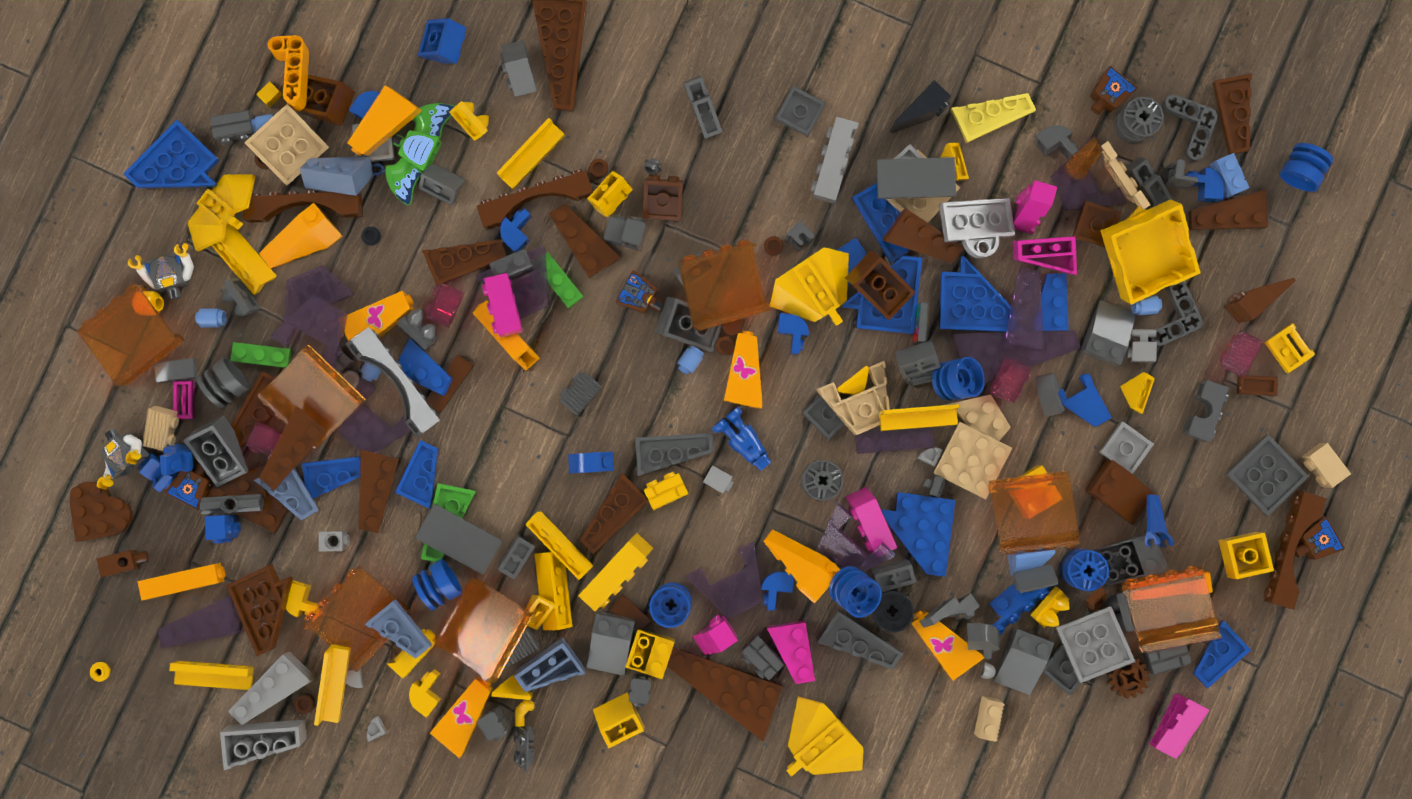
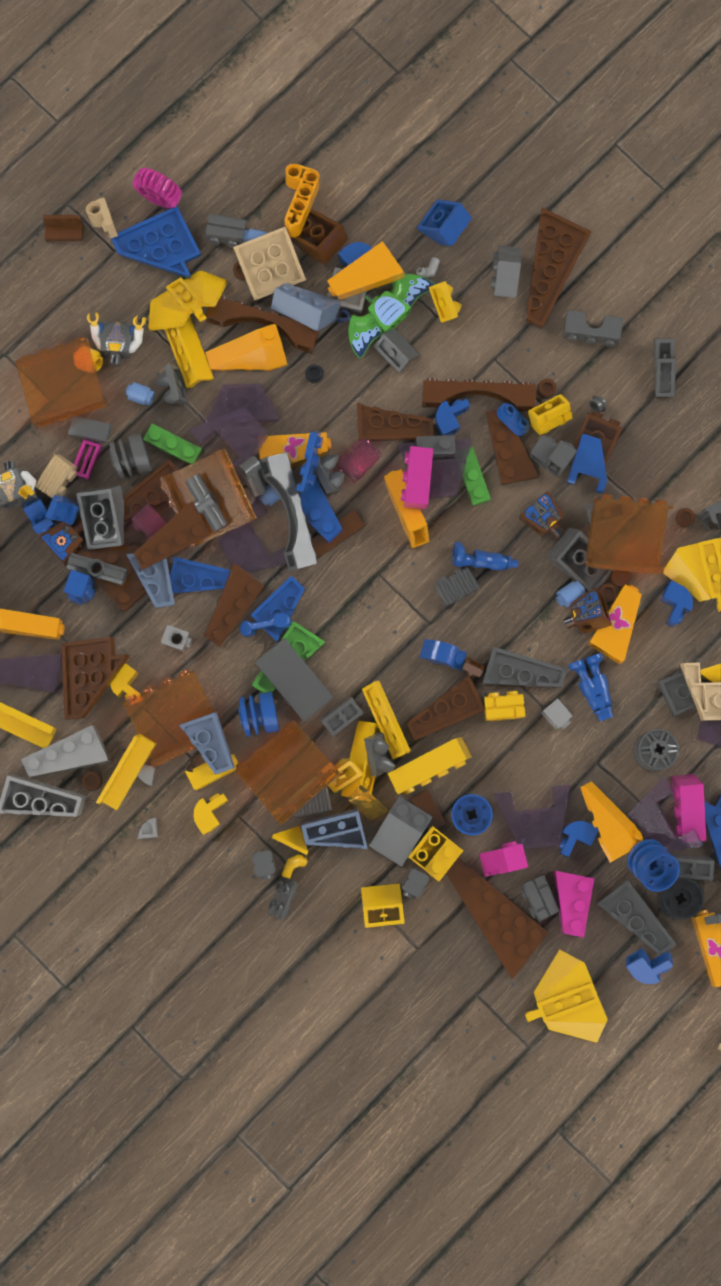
camera: 20 degrees right, 5 degrees down
(75, 181) = (63, 227): none -> reddish brown panel
(107, 157) = (100, 216): none -> tan plate
(149, 110) = (157, 188): none -> dark pink gear
(269, 94) = (269, 214): yellow slope -> none
(311, 402) = (206, 502): none -> dark grey piece
(342, 358) = (250, 472): none -> dark grey piece
(397, 324) = (307, 471): none -> blue wing
(424, 488) = (280, 620): none -> blue bar
(446, 93) = (429, 271): none -> light grey arm
(461, 720) = (234, 849): light orange slope -> none
(530, 154) = (488, 352): yellow panel -> none
(563, 580) = (377, 754): none -> dark grey tile
(569, 630) = (367, 803): none -> clear yellow slope
(576, 211) = (513, 419): none -> blue plate
(595, 358) = (481, 559): none -> blue piece
(606, 100) = (577, 329): none -> dark grey arch
(623, 464) = (473, 668): none -> reddish brown plate
(663, 226) = (589, 461): none -> blue flag
(713, 372) = (589, 612): none -> torso
(884, 687) = (648, 970): none -> brick

